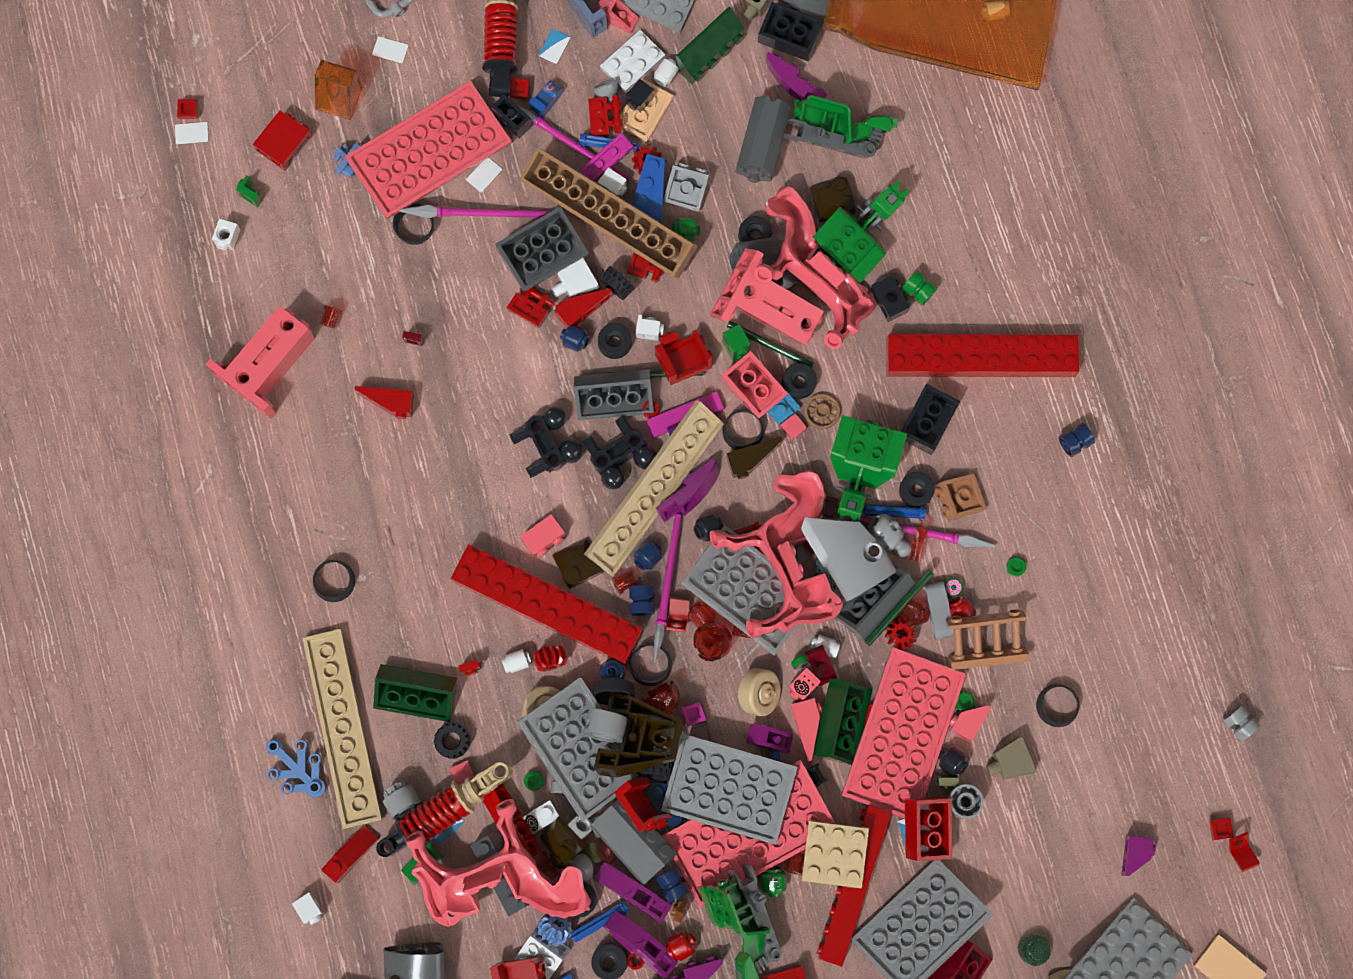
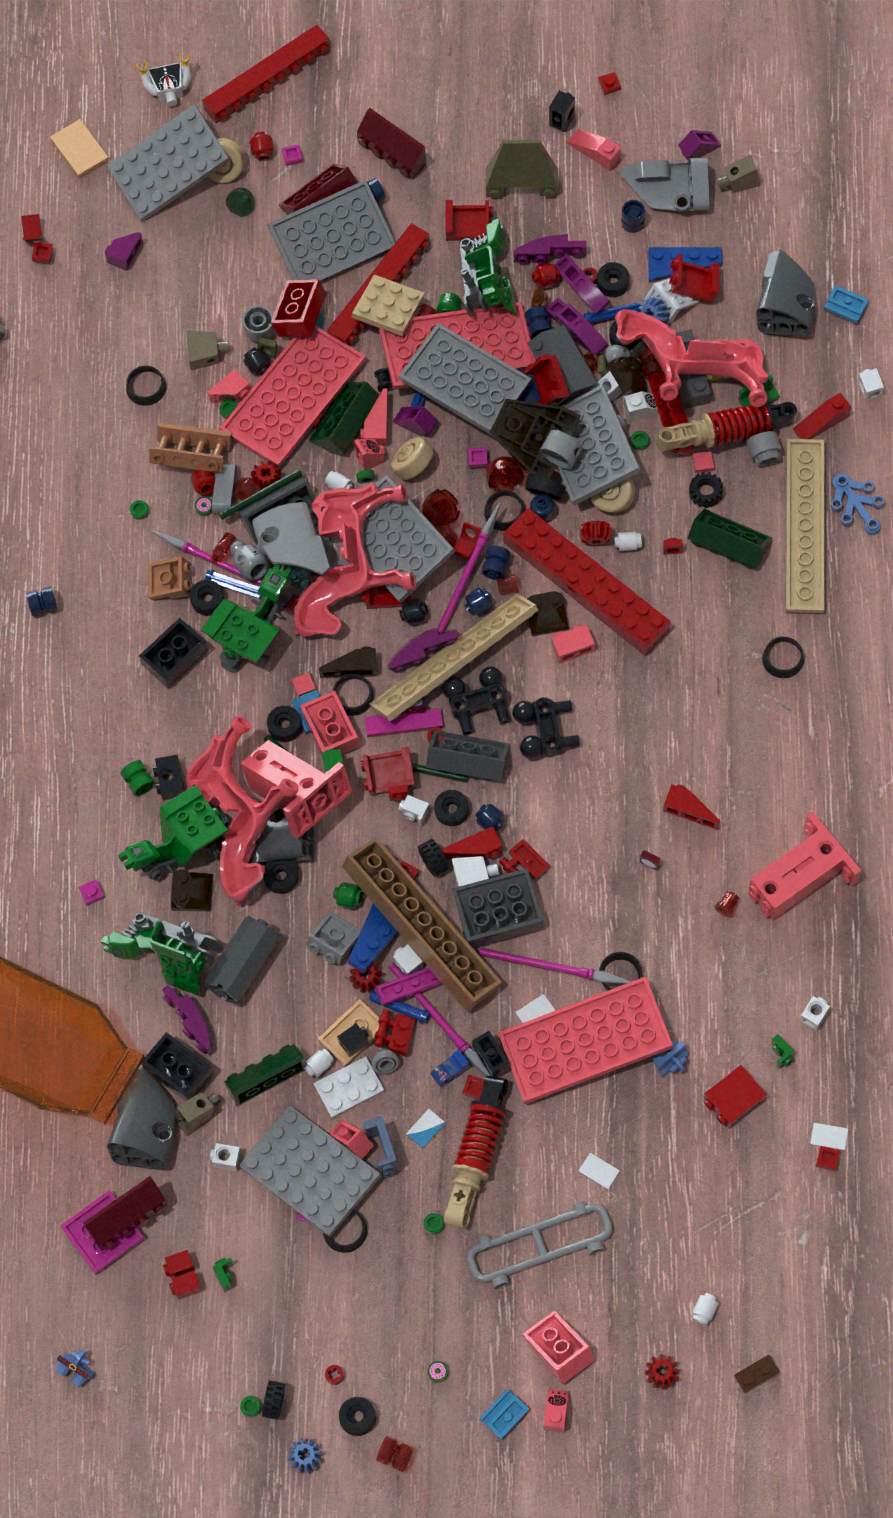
camera: 160 degrees left, 10 degrees down
(336, 89) = (663, 1131): clear orange slope -> none
(821, 664) = (348, 466): dark red plate -> none
(822, 411) = (271, 692): medium nougat wheel -> none
(925, 174) = (91, 892): none -> dark pink plate
(981, 355) = (101, 700): red brick -> none

